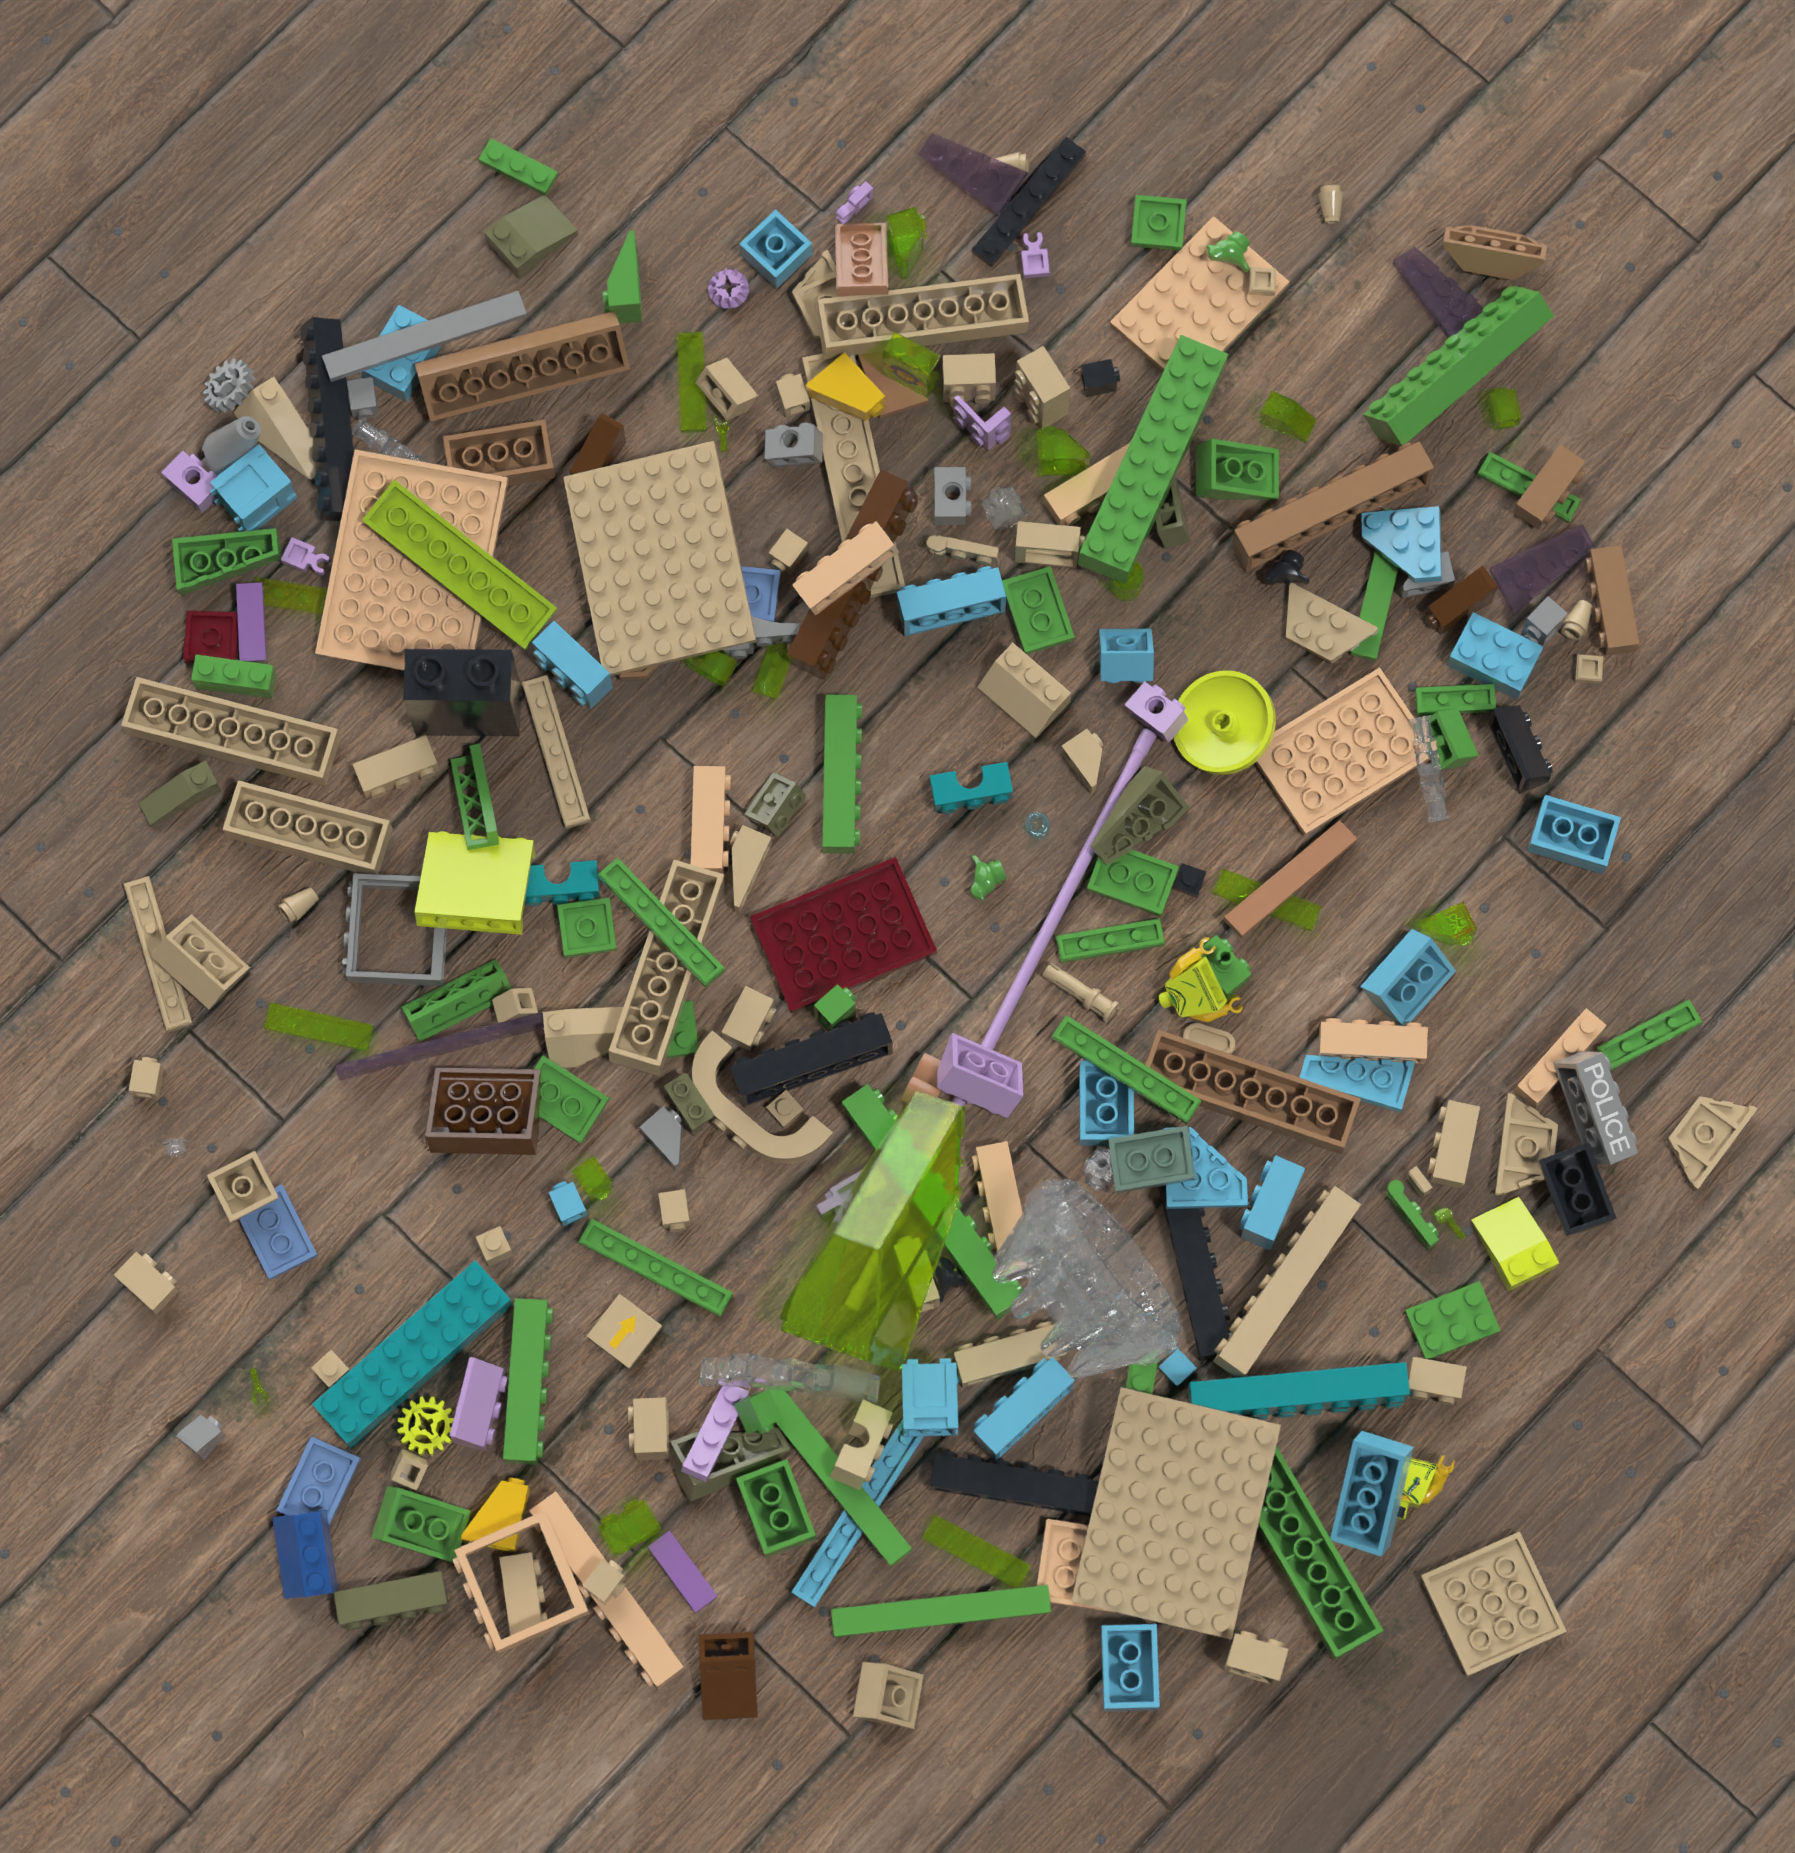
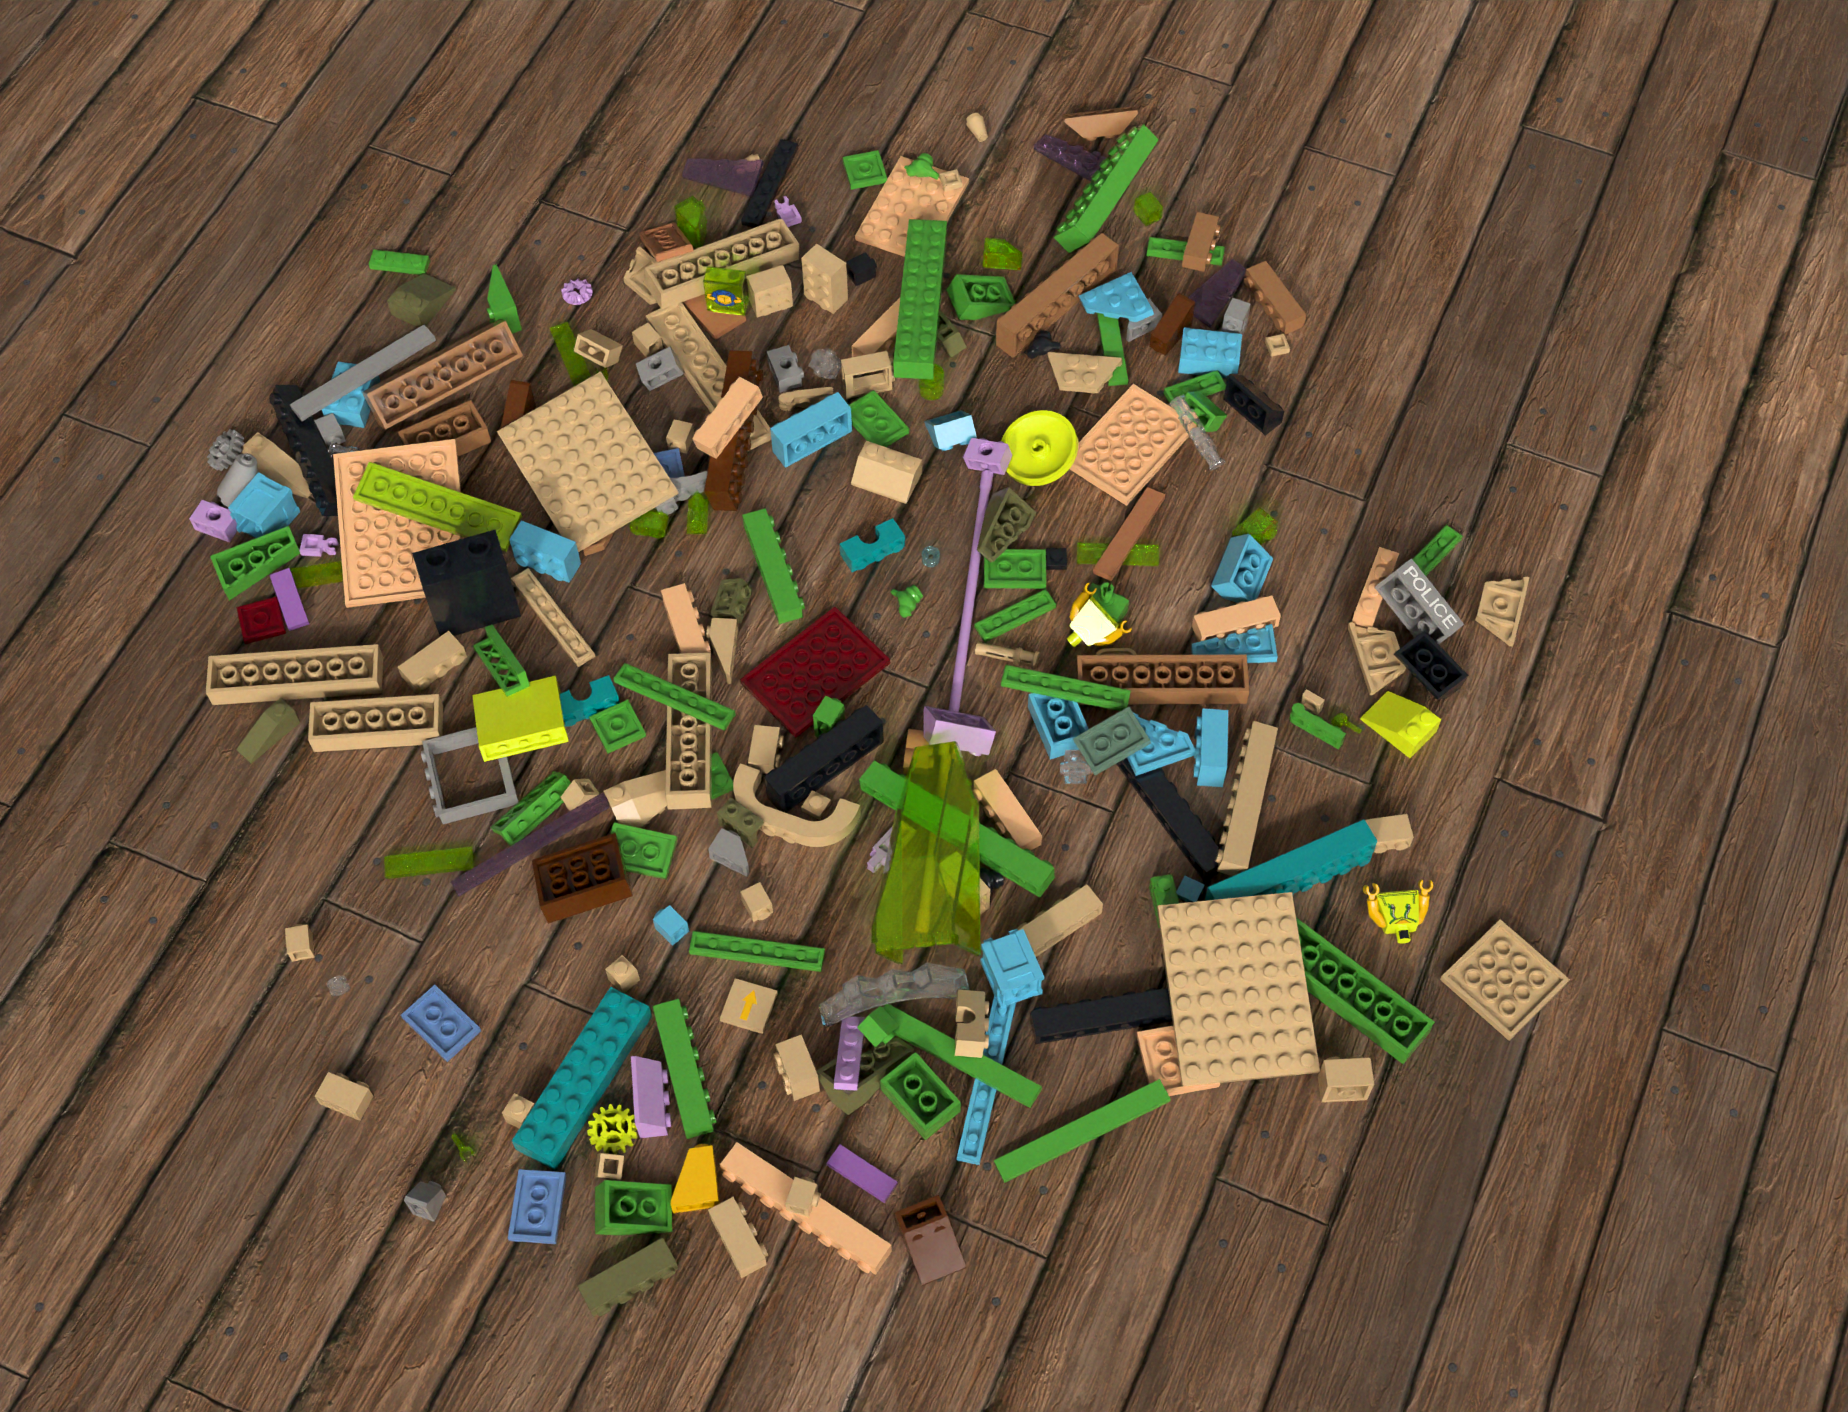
camera: 20 degrees left, 15 degrees down
(151, 934) = (283, 851): tan tile -> none
(199, 961) = (317, 842): tan slope -> none
(234, 676) = (287, 636): bright green brick -> none
(243, 1186) = (401, 993): tan slope -> none
(297, 905) = (384, 780): tan cone -> none
(305, 1554) = (542, 1264): blue slope -> none
(482, 1611) = (709, 1256): light nougat window -> none
(593, 1179) = (684, 900): clear neon green brick -> none
(629, 1527) = (806, 1152): clear neon green brick -> none
(776, 249) = (602, 255): medium azure brick -> none
(847, 389) = (685, 321): yellow slope -> none
(857, 200) = (650, 213): lavender plate -> none
(888, 1695) = (1065, 1211): tan slope -> none
(976, 1552) = (1090, 1077): clear neon green tile -> none
(983, 433) = (789, 319): lavender bracket -> none
(1023, 1409) = (1086, 954): medium azure brick -> none
(1059, 453) = (852, 317): clear neon green slope -> none
(1084, 757) = (947, 501): tan slope -> none
(1088, 1281) = (1105, 830): clear wheel -> none
(1130, 1667) = (1250, 1121): medium azure brick -> none
(1371, 1493) = (1380, 923): medium azure brick -> none
(1452, 1321) = (1379, 790): bright green plate -> none
(1453, 1144) = (1325, 668): tan brick -> none
(1574, 834) = (1317, 443): medium azure brick -> none
(1577, 621) = (1256, 317): tan cone -> none

